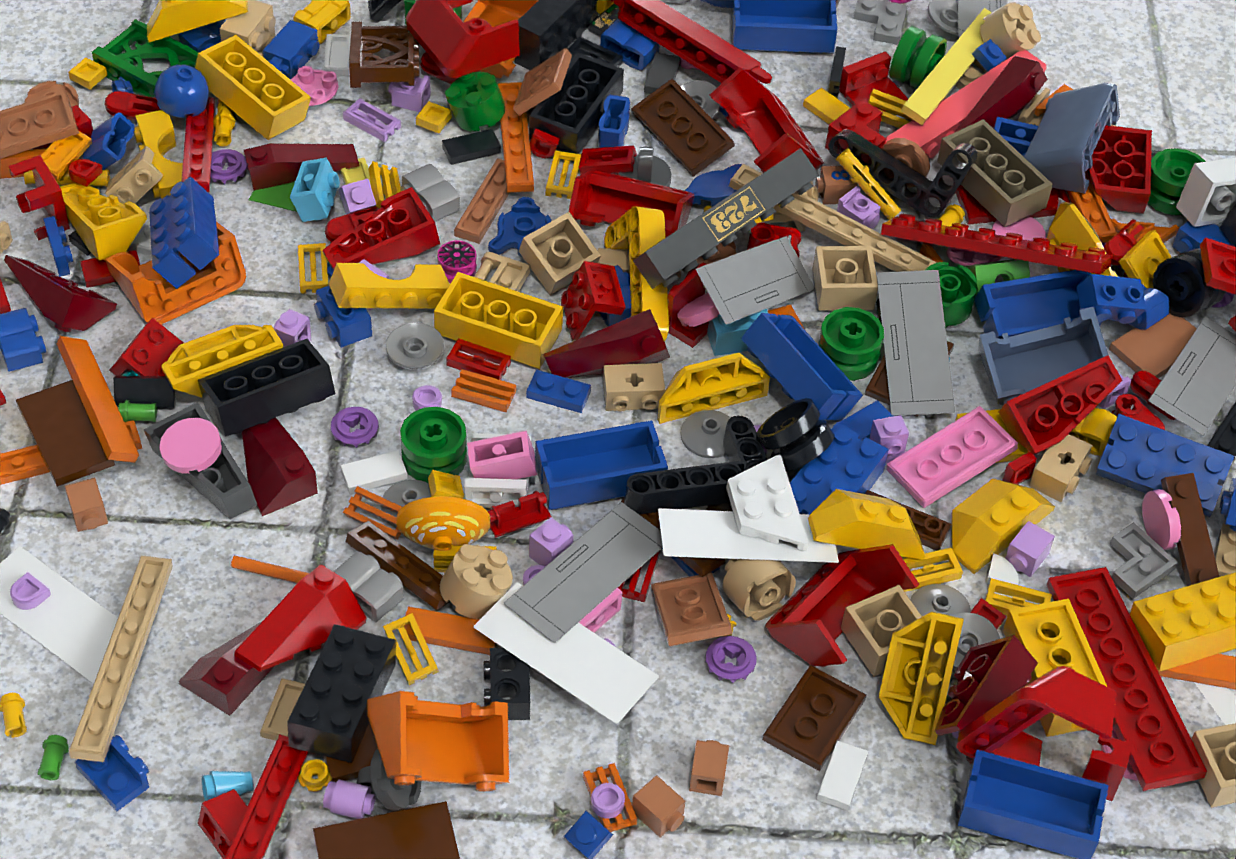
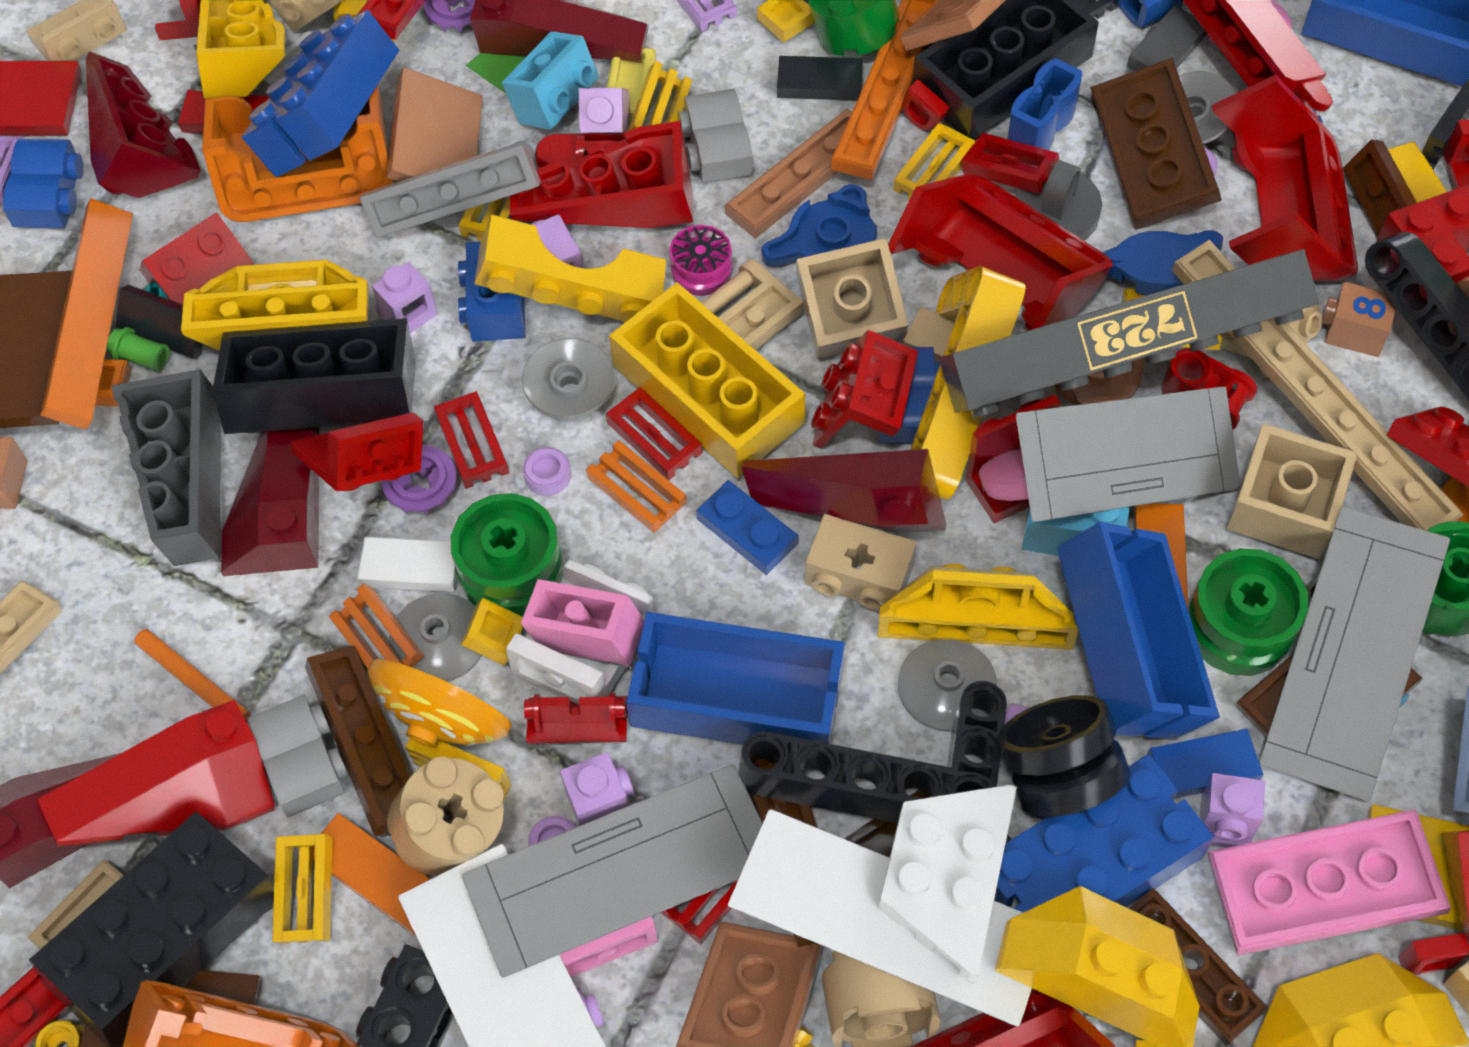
camera: 30 degrees right, 10 degrees up
(56, 238) = (167, 58): blue plate -> none
(190, 445) = (150, 437): bright pink tile -> none
(259, 240) = (431, 125): none -> nougat tile
(289, 264) = (451, 189): none -> light grey piece
(325, 415) = (364, 452): none -> red bracket
(369, 400) = (482, 469): none -> red tile
(813, 114) = (1378, 183): none -> reddish brown plate
(849, 162) = (1384, 288): yellow pin -> none
(859, 208) = (1374, 375): lavender brick -> none

